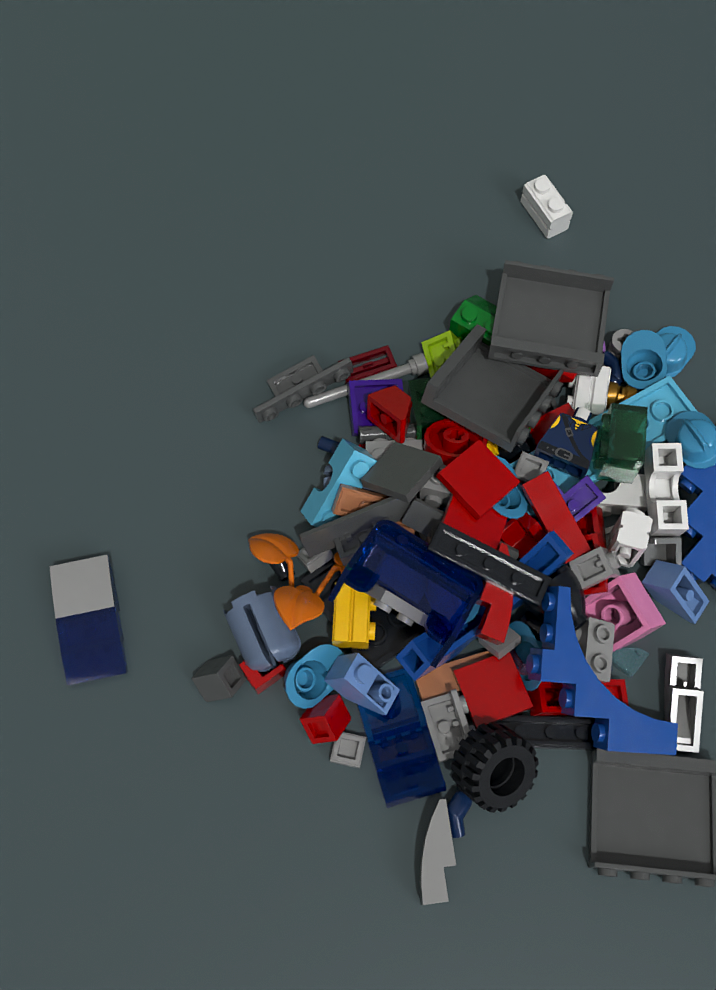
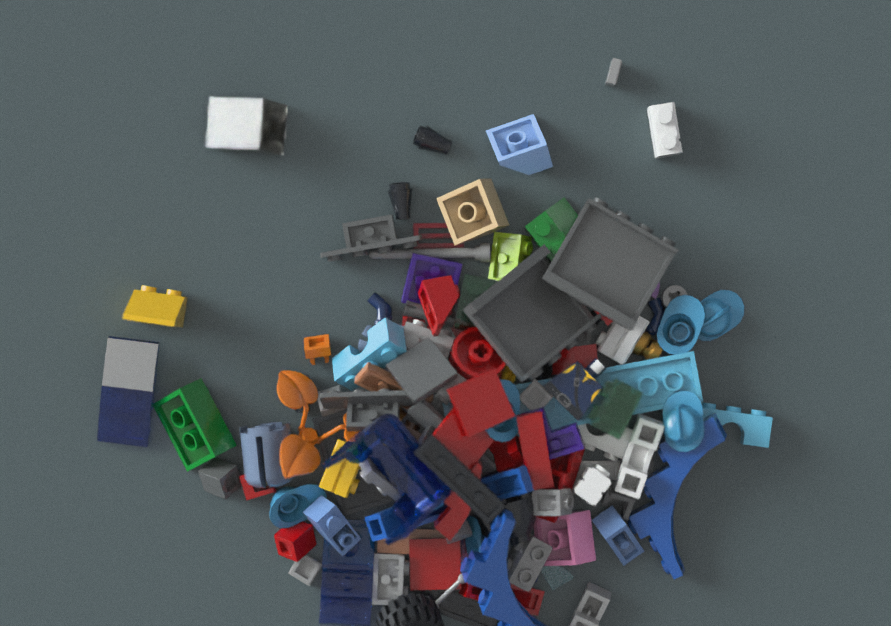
camera: 20 degrees right, 20 degrees up
(95, 522) = (156, 308): none -> yellow slope
(140, 322) = (246, 125): none -> clear smoke slope
(172, 630) = (194, 424): none -> green slope
(281, 506) = (317, 347): none -> orange tile
(317, 341) = (401, 197): none -> black cone
(327, 283) = (430, 140): none -> black cone
(393, 328) = (472, 211): none -> tan slope
(421, 258) = (520, 146): none -> light blue slope
(477, 176) = (613, 72): none -> light grey tile
(530, 691) = (460, 580): none -> light grey hinge

